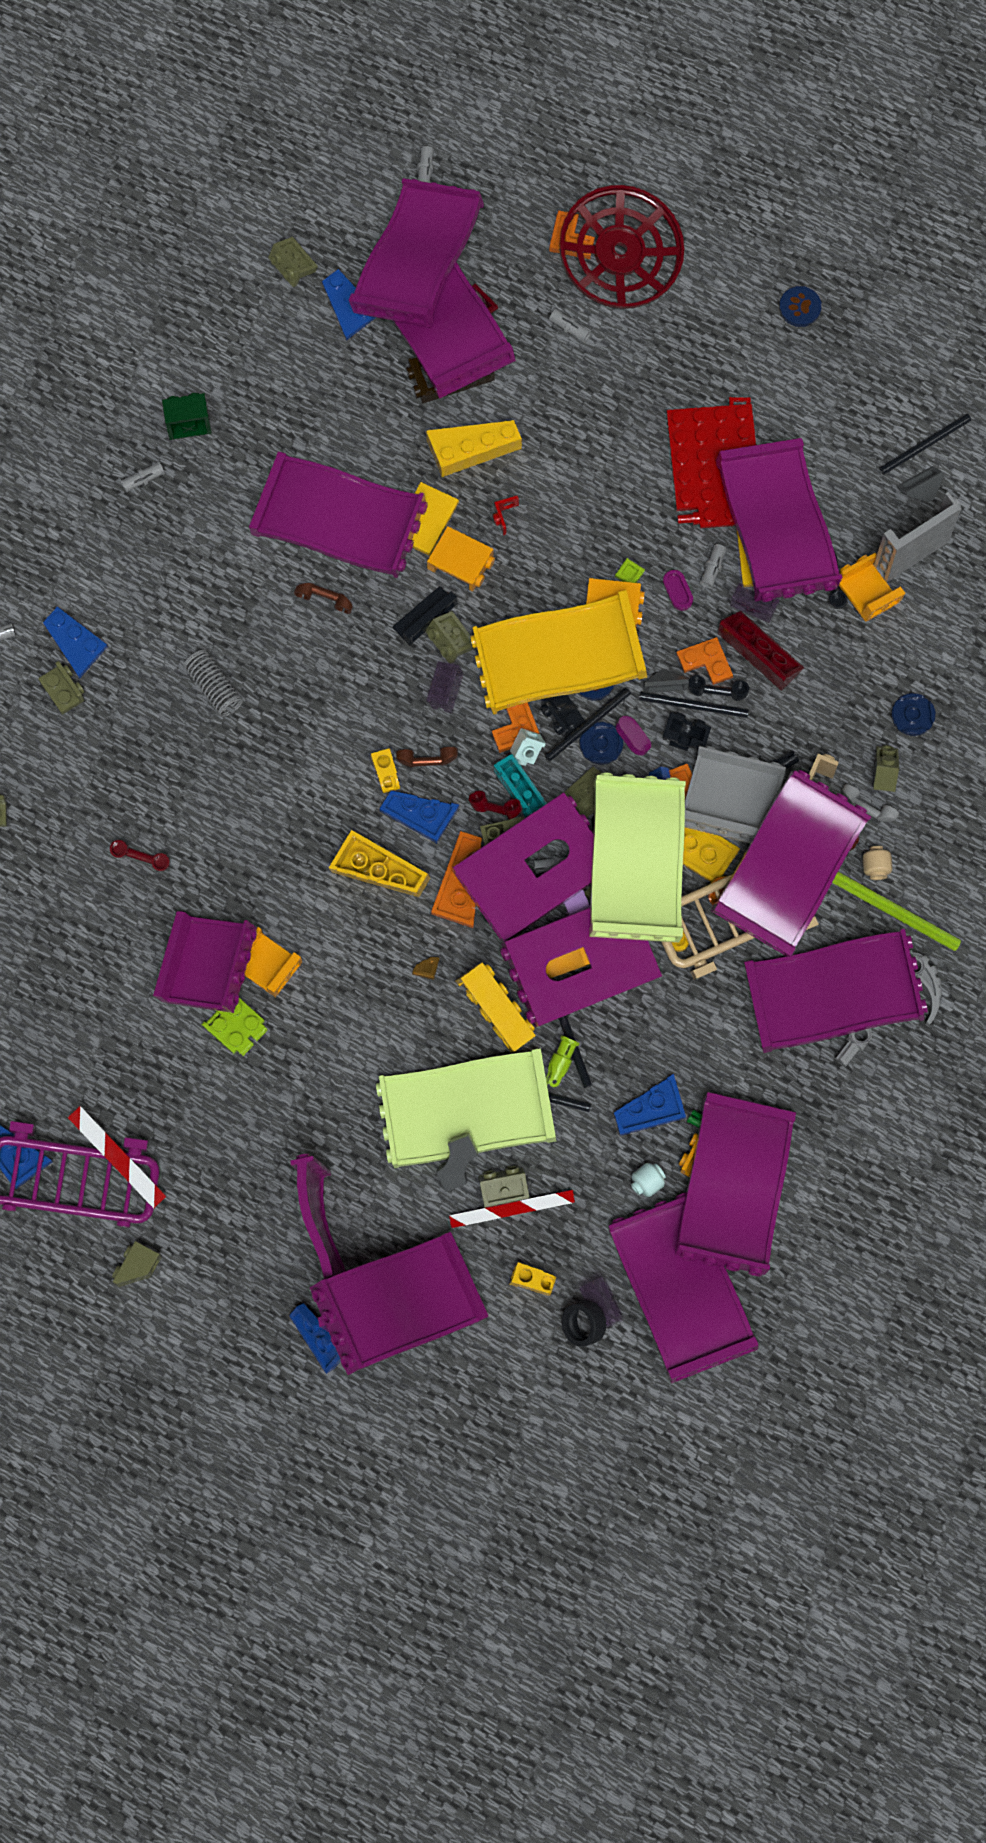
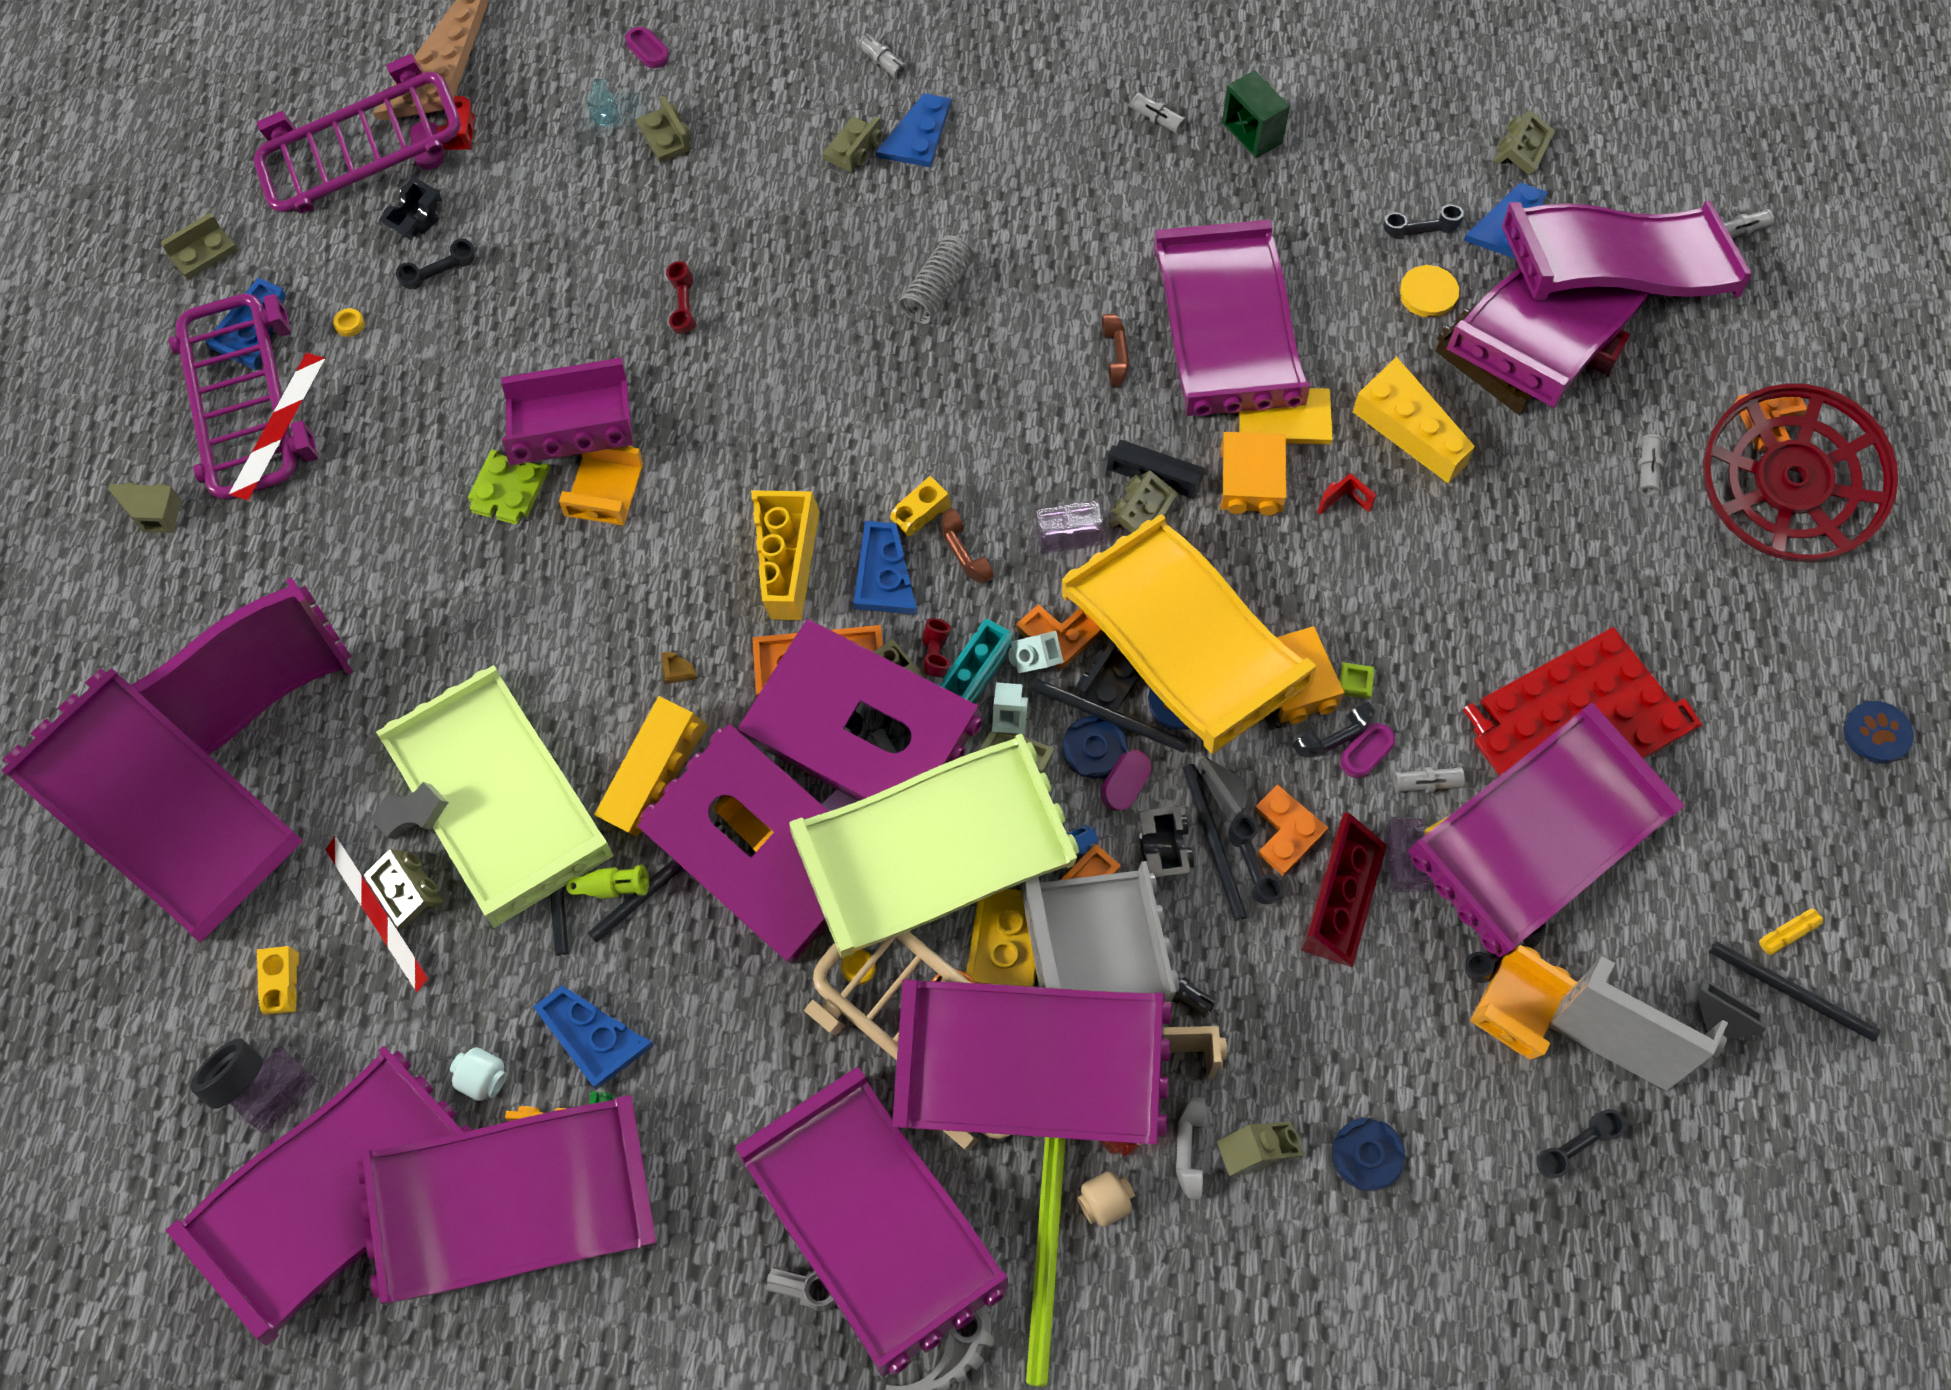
camera: 65 degrees right, 10 degrees down
(22, 990) = (411, 276): none -> black bar
(42, 1086) = (348, 322): none -> yellow tile
(329, 342) = (1397, 224): none -> black bar
(376, 383) = (1429, 291): none -> yellow tile
(556, 779) = (1009, 709): none -> light aqua brick
(659, 584) = (1311, 746): none -> black bar
(893, 425) = (1791, 931): none -> yellow axle
(953, 585) = (1603, 1126): none -> black bar

